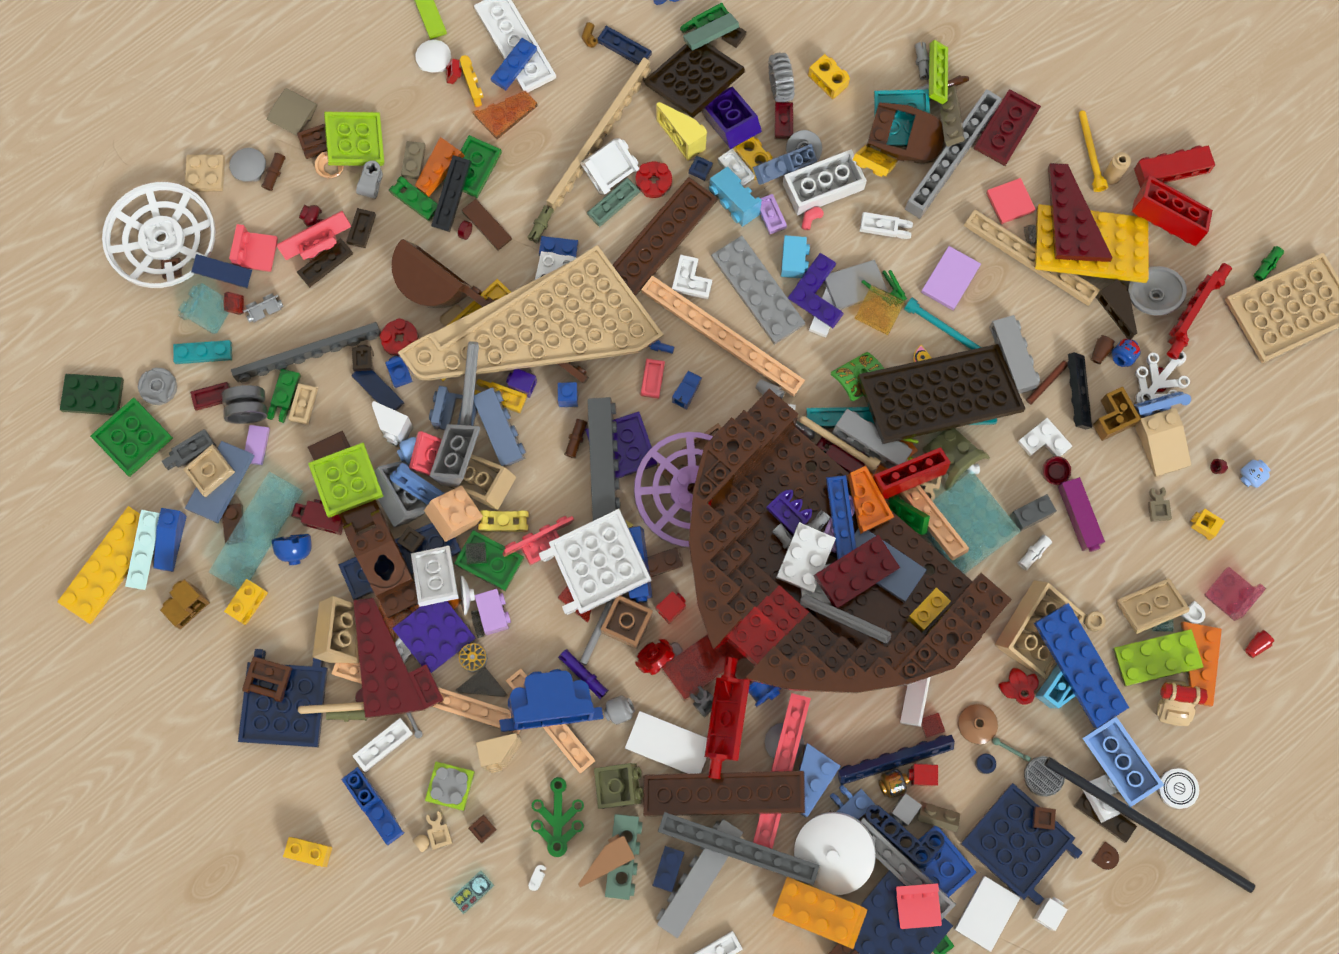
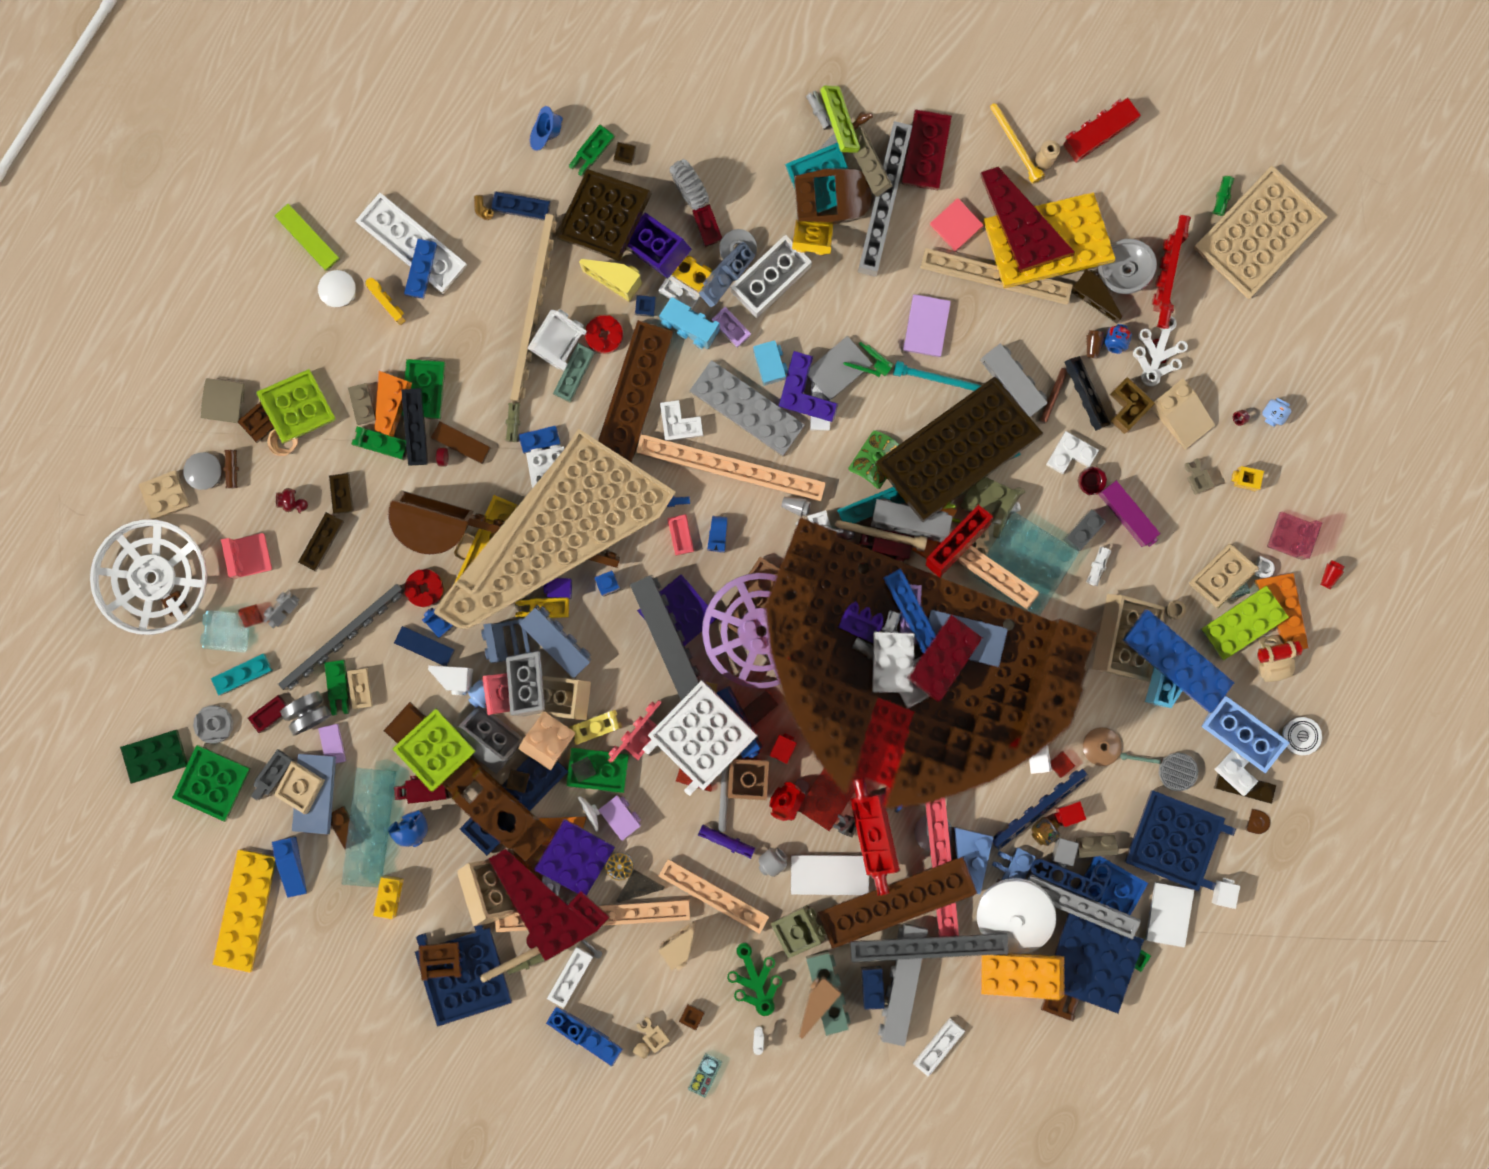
camera: 20 degrees left, 10 degrees up
(142, 550) = (271, 886): light aqua plate -> none
(184, 605) = (331, 921): pearl gold brick -> none
(221, 271) = (225, 590): dark blue tile -> none
(307, 852) = (542, 1099): yellow brick -> none
(315, 238) = (302, 522): coral bracket -> none
(362, 358) = (398, 623): dark brown bracket -> none
(369, 182) = (329, 445): light grey piece -> none
(414, 484) = (501, 727): medium blue plate -> none
(434, 576) = (554, 807): white plate -> none
(449, 786) = (646, 990): light grey piece -> none
(453, 71) = (363, 298): red plate -> none
(469, 383) = (513, 615): light grey axle -> none
(477, 624) = (610, 833): clear smoke tile -> none
(504, 115) = (433, 322): clear orange wing -> none
(549, 701) = (706, 881): blue brick -> none
(575, 438) = (631, 622): reddish brown pin -> none
(711, 31) = (601, 160): sand green tile -> none
(810, 215) = (769, 313): coral arm -> none
(825, 79) = (731, 166): yellow brick -> none
(845, 618) = (951, 708): light grey axle -> none
(867, 500) = (930, 584): orange wing -> none
(880, 310) = (871, 386): clear yellow plate -> none
(885, 225) = (844, 297): white hinge -> none
(910, 515) = (971, 579): green plate -> none
(918, 906) = (1108, 936): coral bracket -> none
(921, 354) = (926, 415): tile -> none
(928, 610) = (1023, 667): yellow brick -> none
(985, 763) = (1122, 780): dark blue tile -> none
(1020, 683) = (1126, 695): red plate -> none
(1030, 234) = (987, 253): clear smoke tile -> none
(1044, 818) = (1191, 812): reddish brown plate -> none
(1149, 825) = (1286, 782): black piece -> none
(1162, 403) = (1168, 378): medium blue plate -> none
(1172, 211) = (1115, 178): red slope -> none

